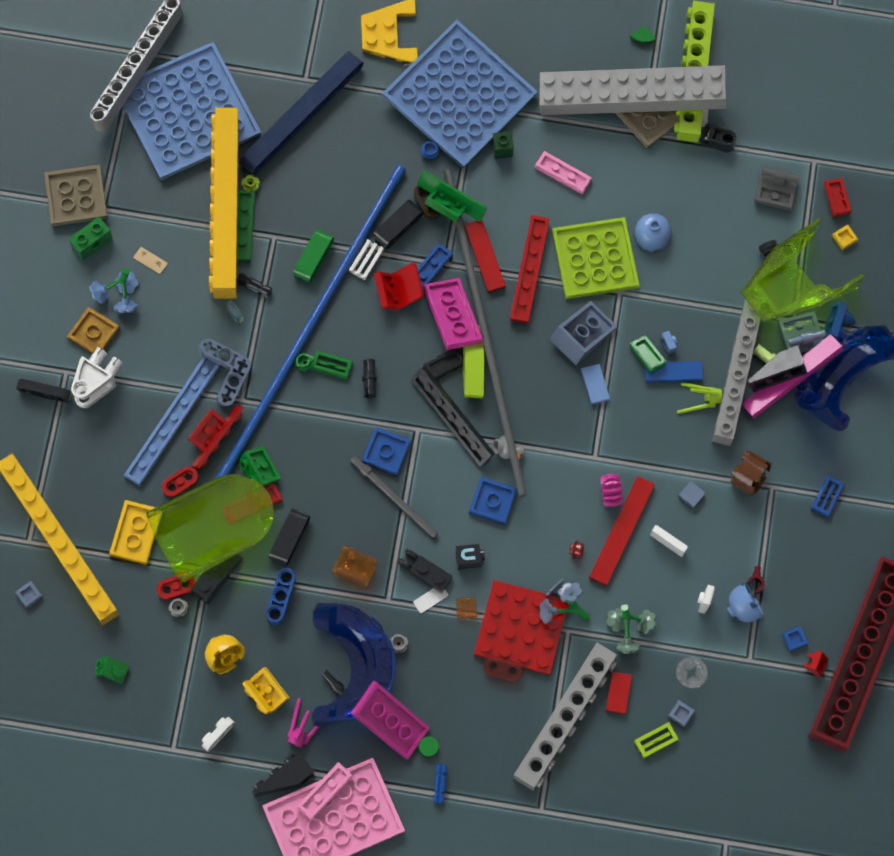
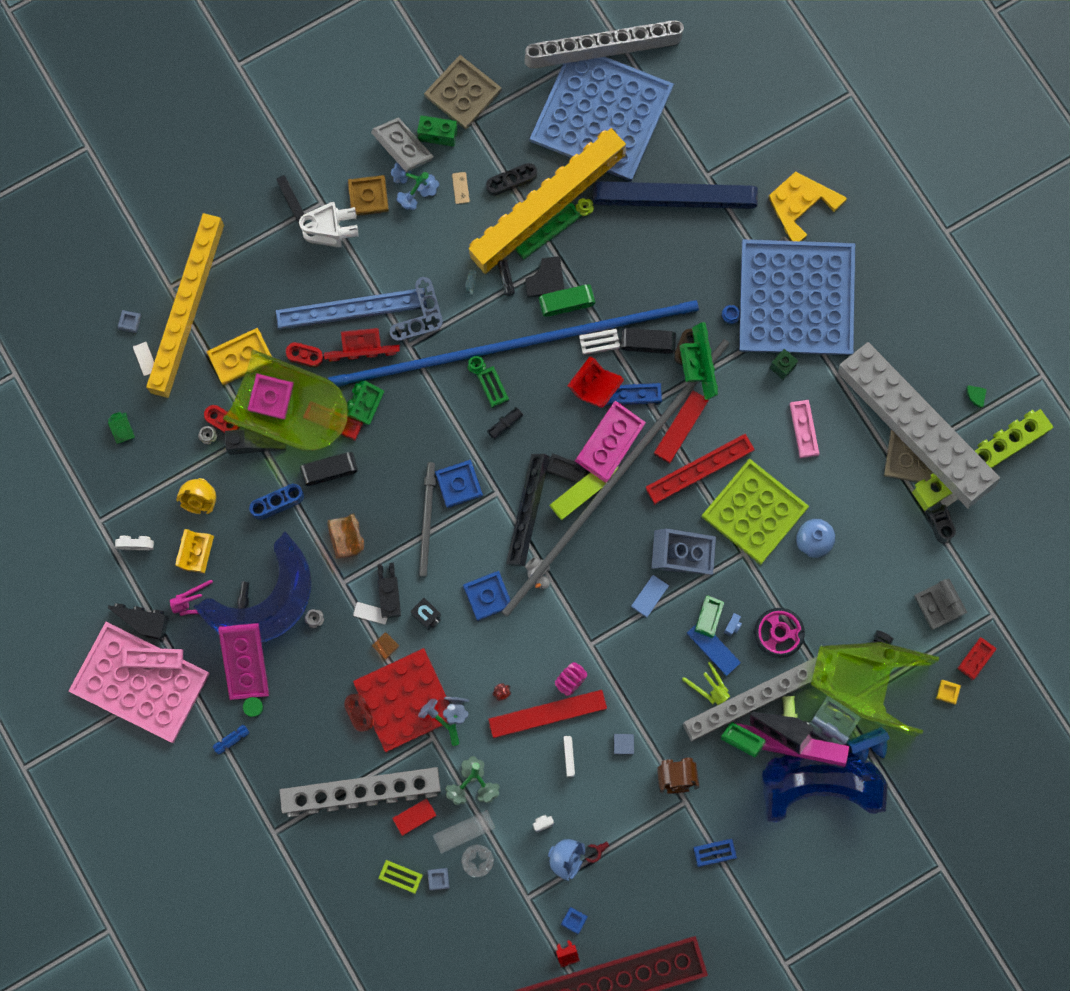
camera: 55 degrees right, 5 degrees up
(70, 607) = (144, 358): none -> white sticker
(77, 272) = (402, 144): none -> light grey tile
(177, 209) = (497, 179): none -> black beam
(192, 533) = (270, 396): none -> dark pink plate
(282, 255) = (547, 279): none -> black tile
(660, 665) = (464, 831): none -> clear plate
(686, 310) = (772, 617): none -> dark pink wheel
(762, 404) = (743, 739): none -> green tile

